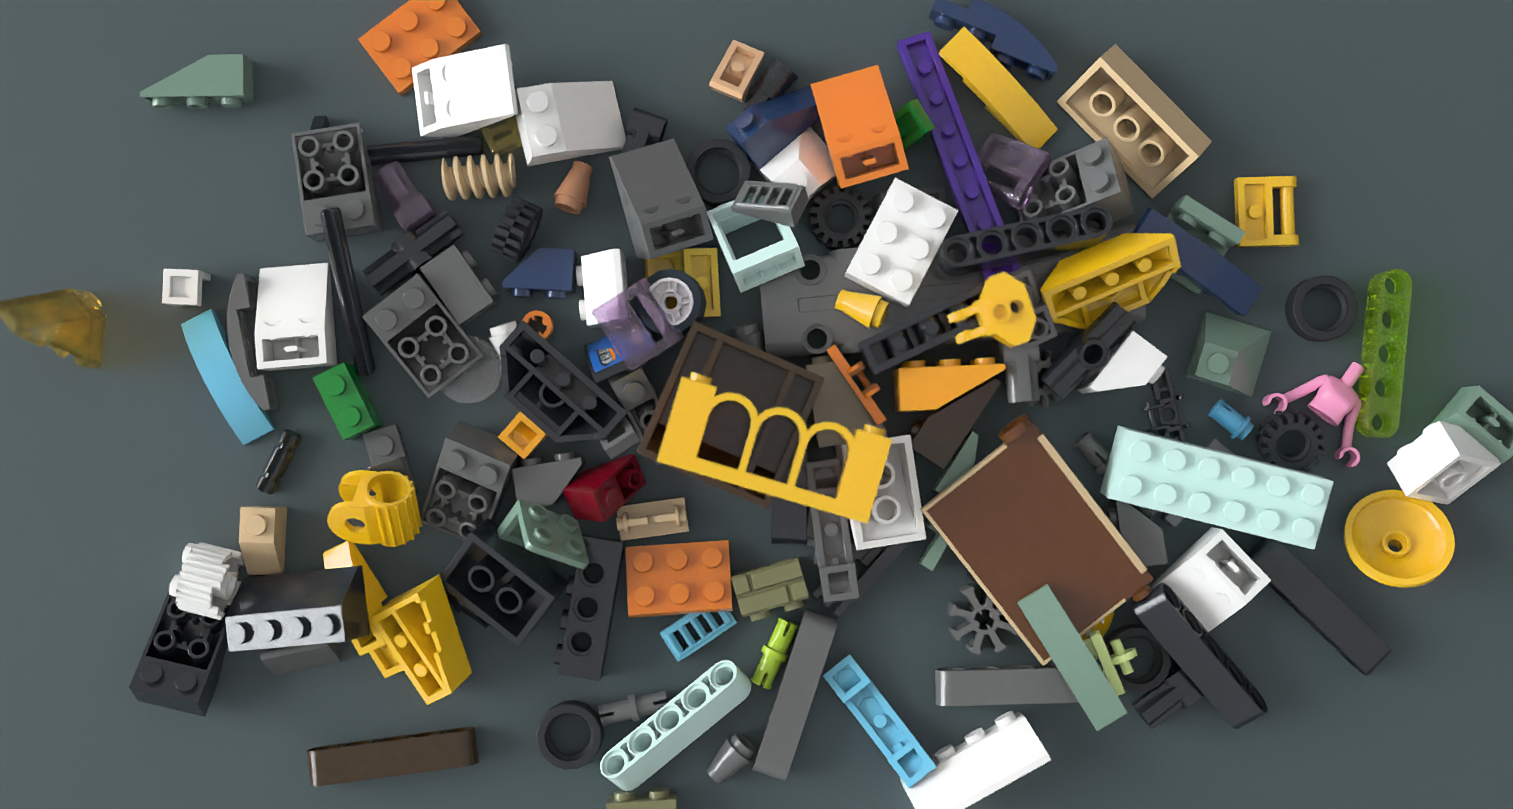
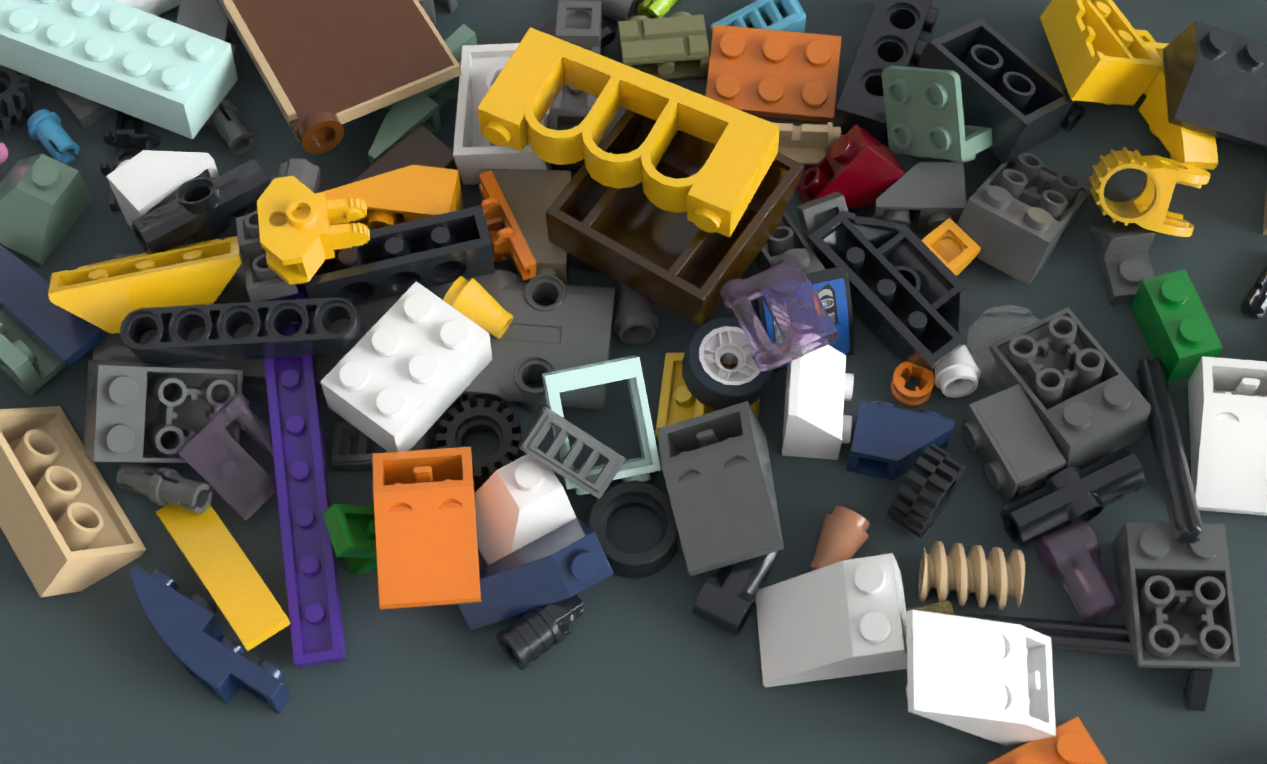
camera: 175 degrees left, 25 degrees down
(736, 71) = (582, 651): light nougat slope -> none
(1036, 136) = (164, 486): none -> dark grey pin

